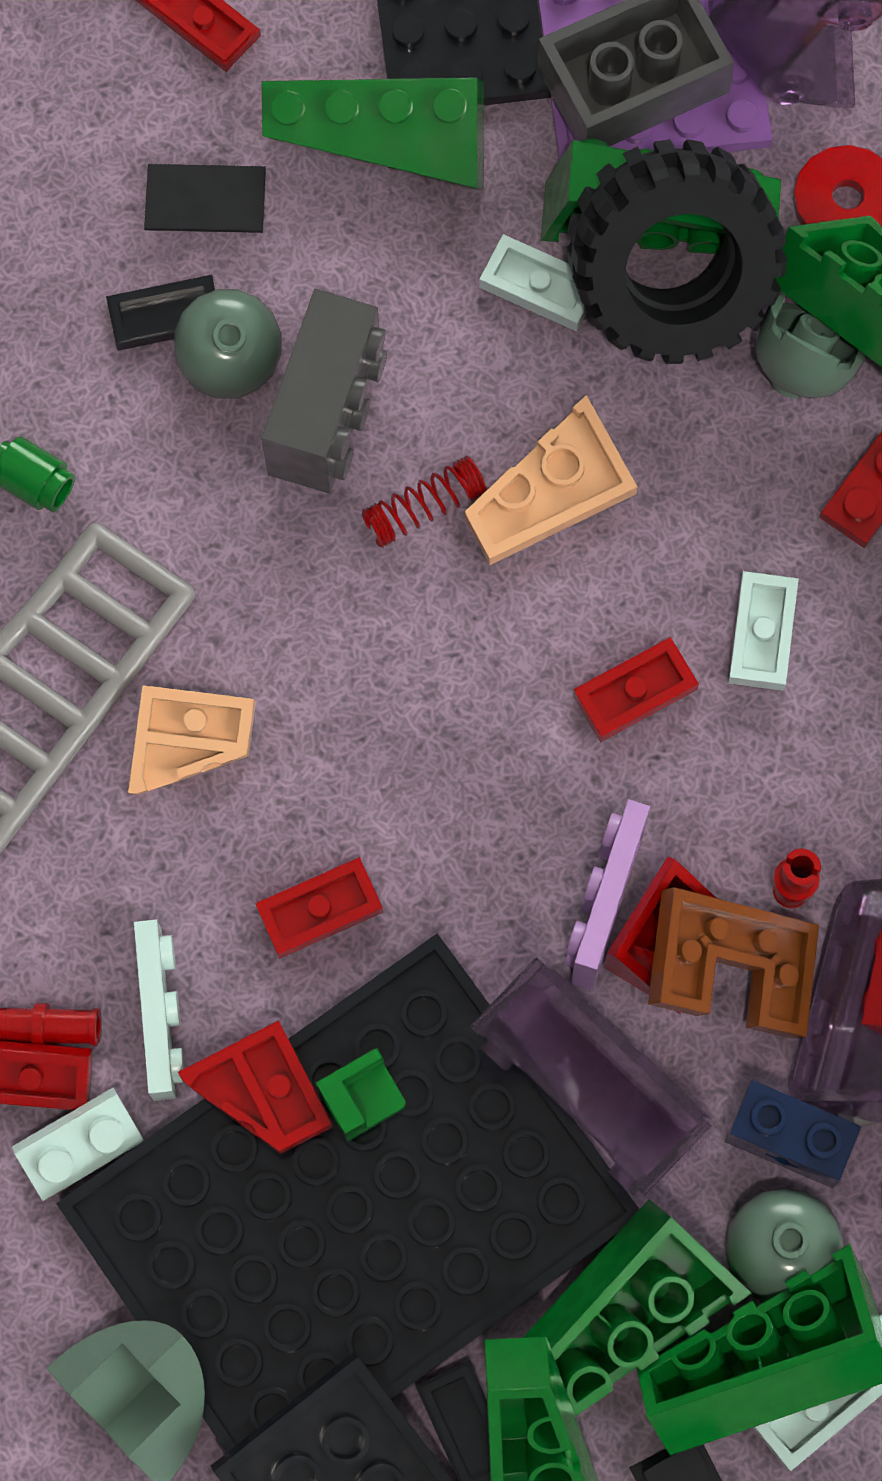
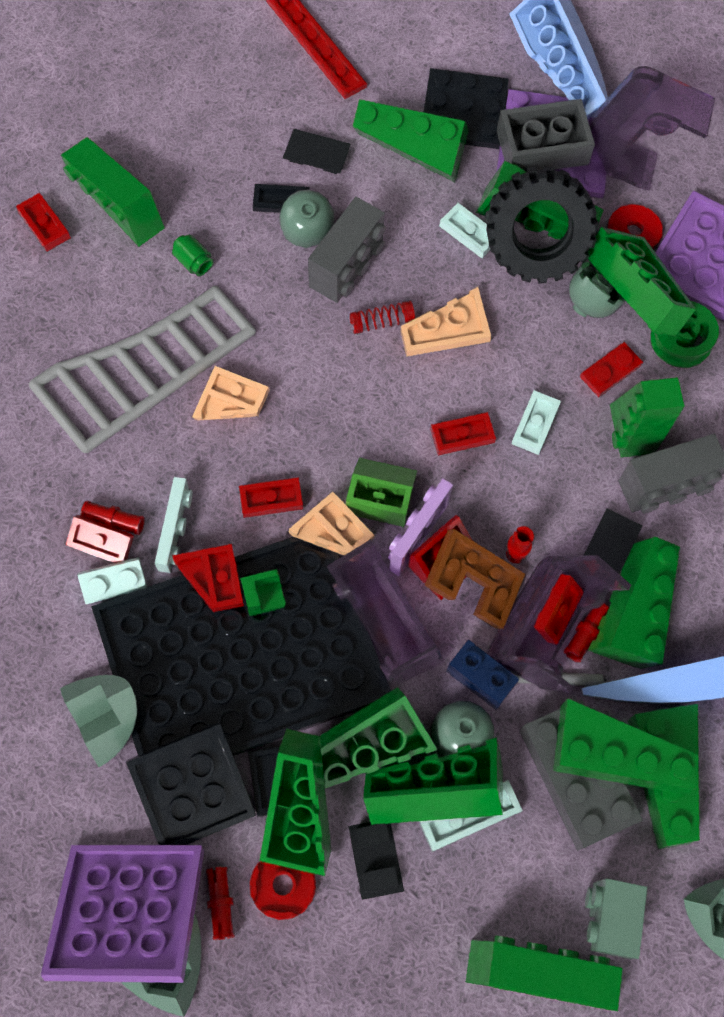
camera: 10 degrees right, 5 degrees down
(452, 937) = (332, 527): none -> light nougat wing
(518, 841) = (381, 491): none -> bright green slope

